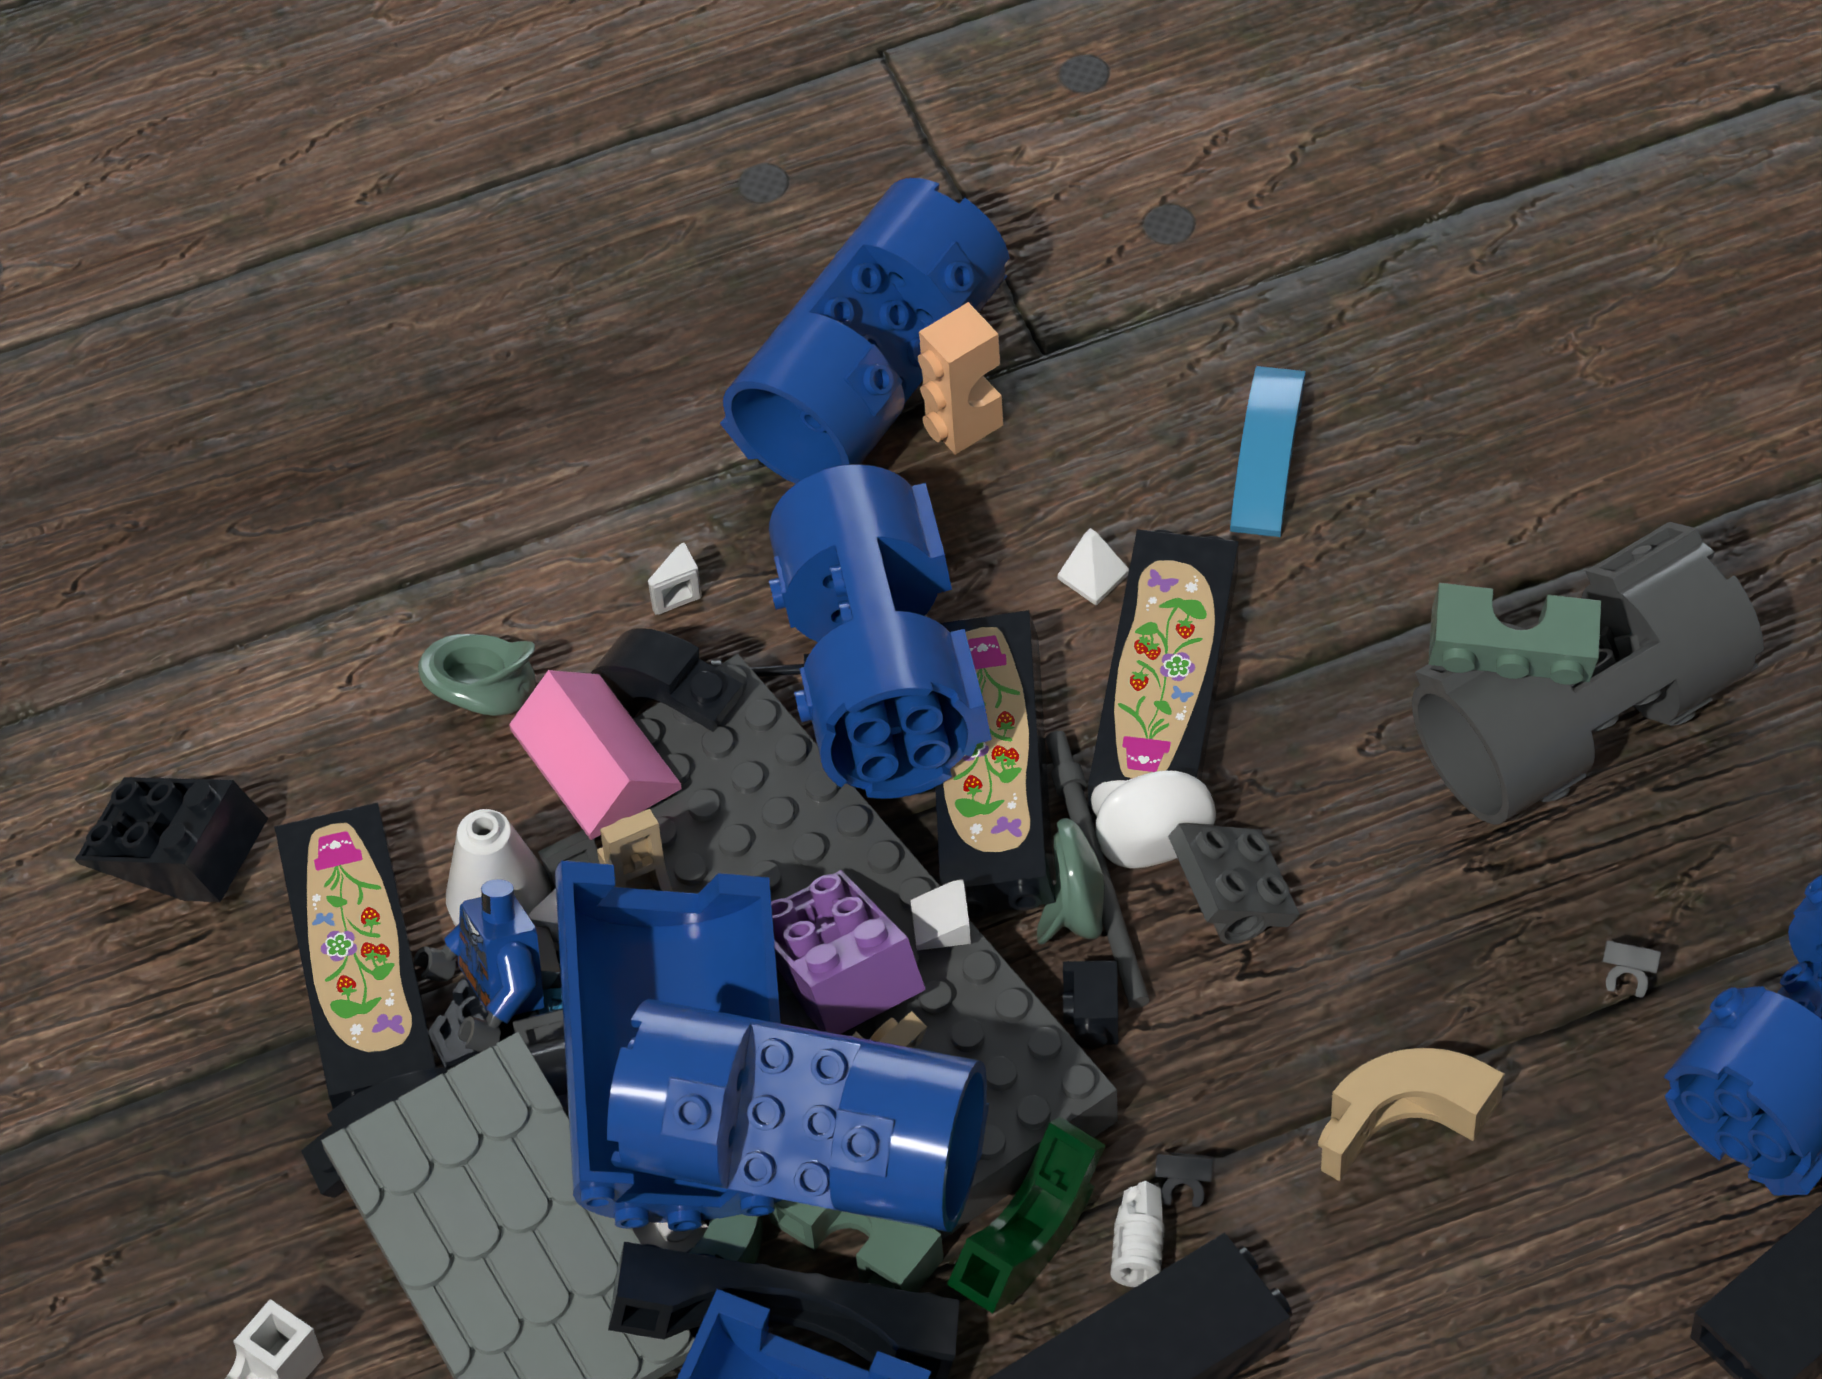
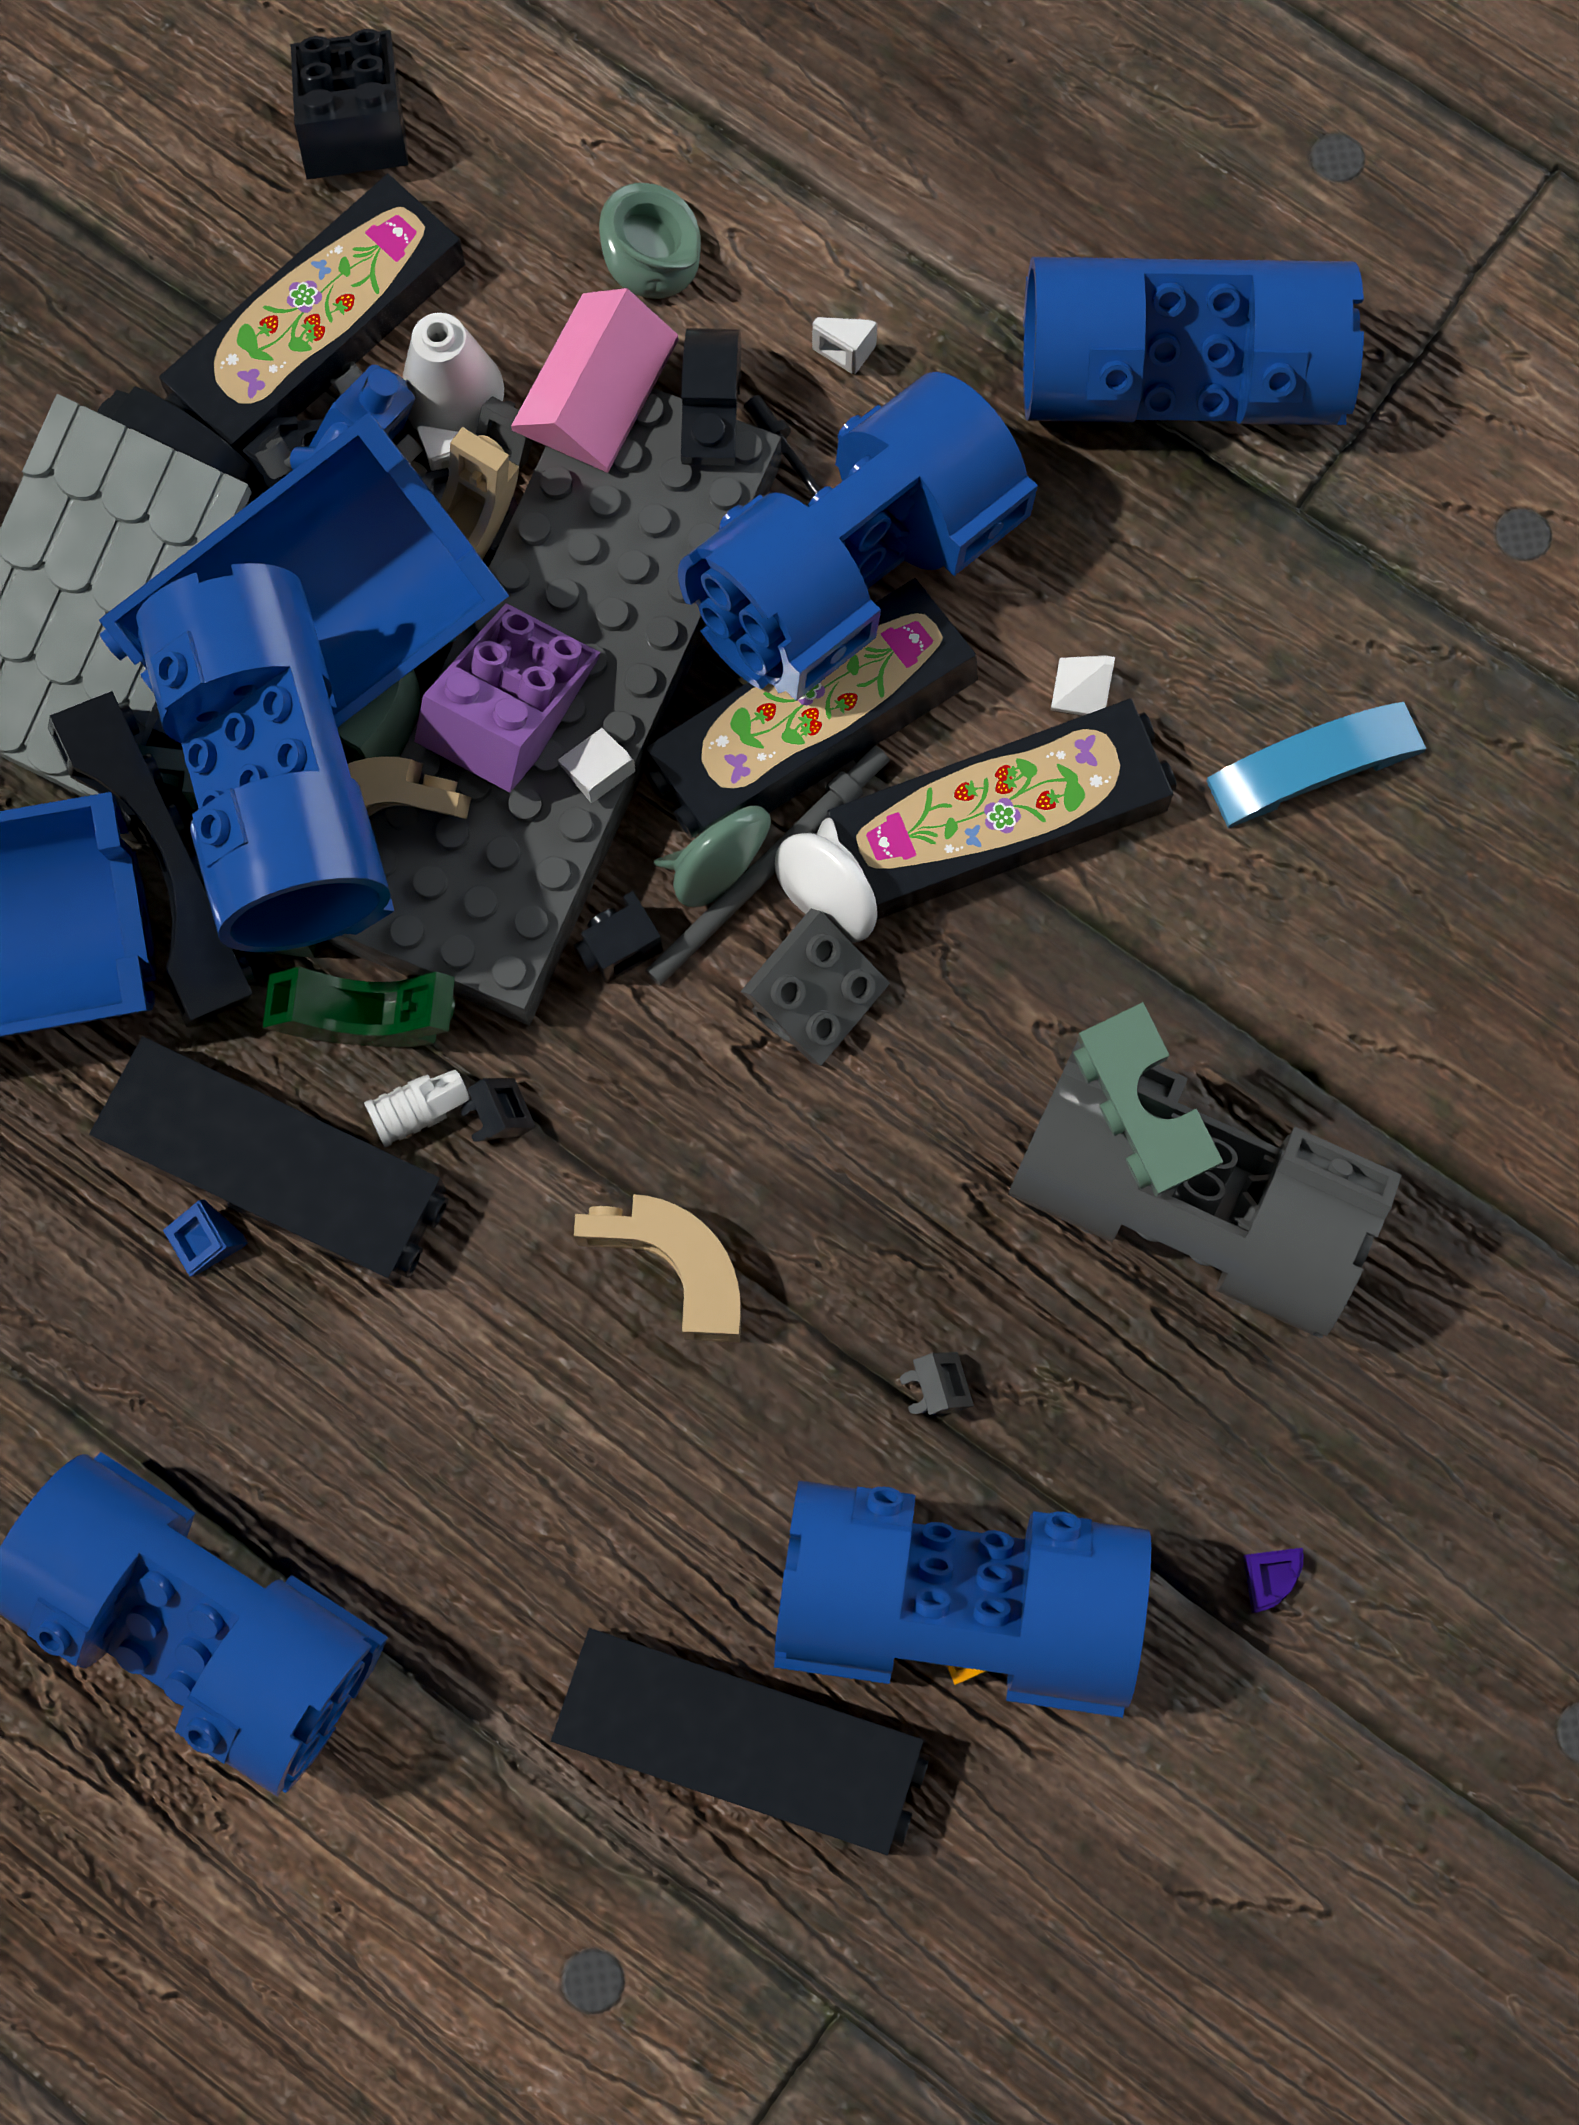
camera: 55 degrees right, 20 degrees up
(956, 395) = (1186, 448): light nougat arch -> none

